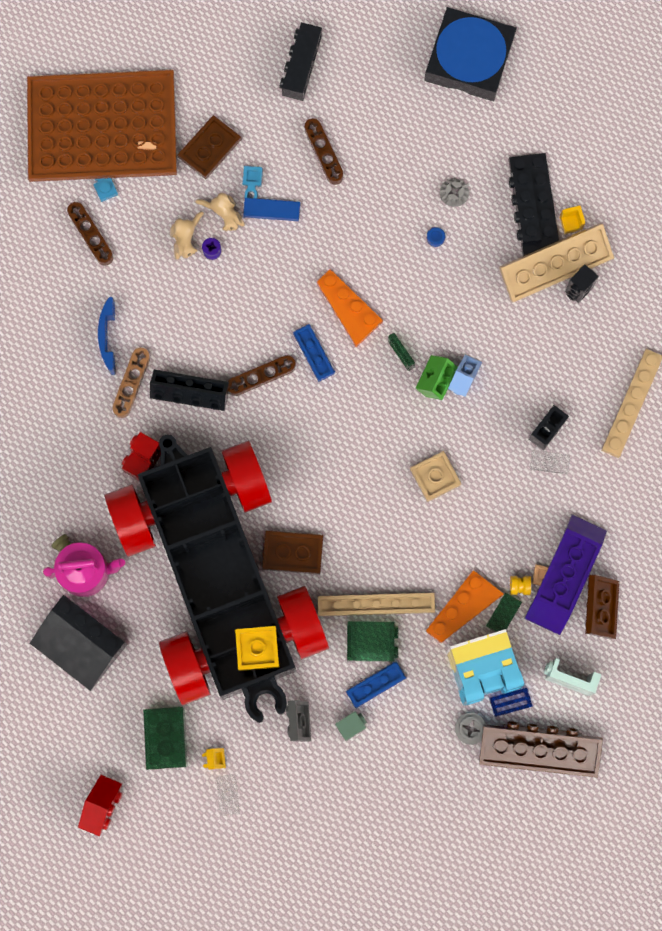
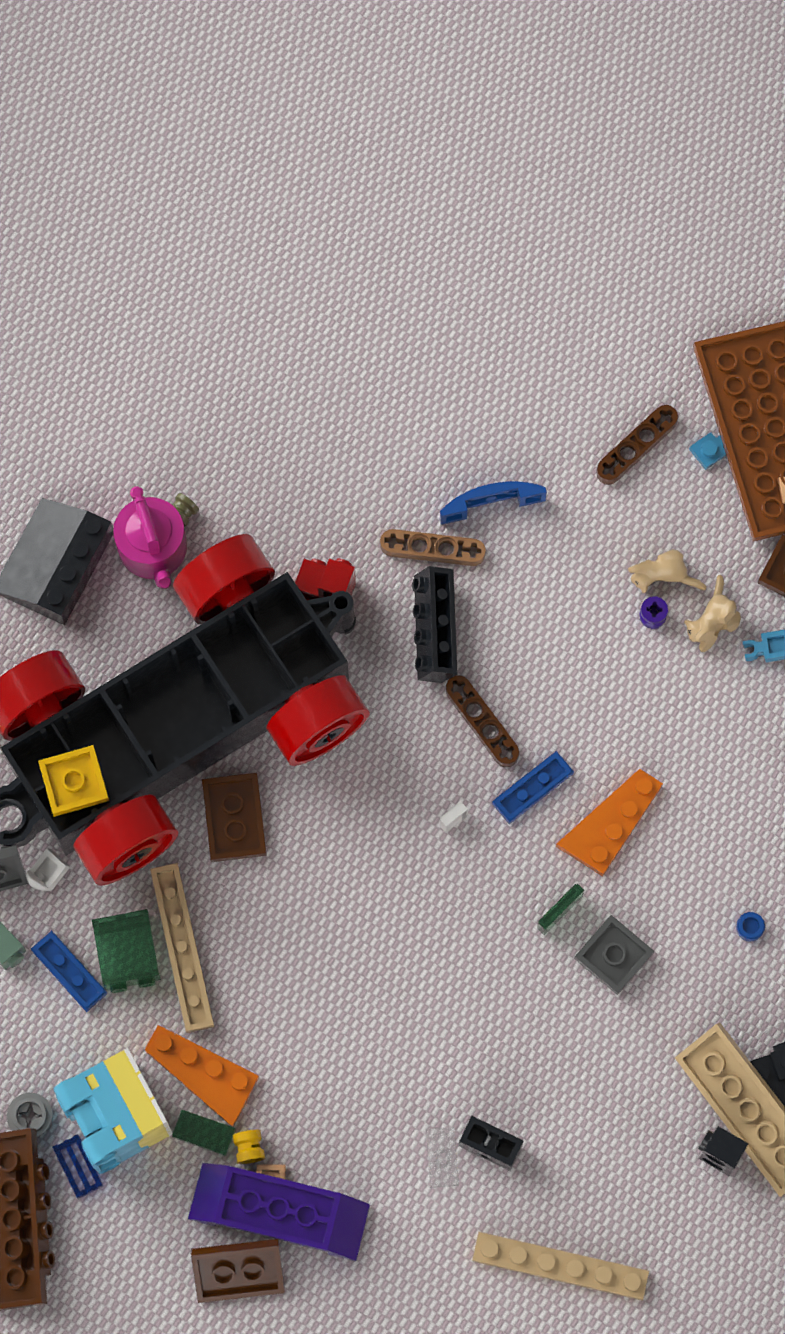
camera: 80 degrees right, 5 degrees down
(271, 209) = (734, 684): blue tile -> none
(304, 686) = (47, 871): none -> white plate
(324, 407) = (453, 817): none -> white tile
(435, 476) = (385, 995): tan plate -> none
(436, 377) = (531, 965): bright green brick -> none
(438, 325) = (614, 954): none -> dark grey plate
(464, 375) = (546, 1007): light blue slope -> none
(585, 687) = (117, 1243): light aqua panel -> none

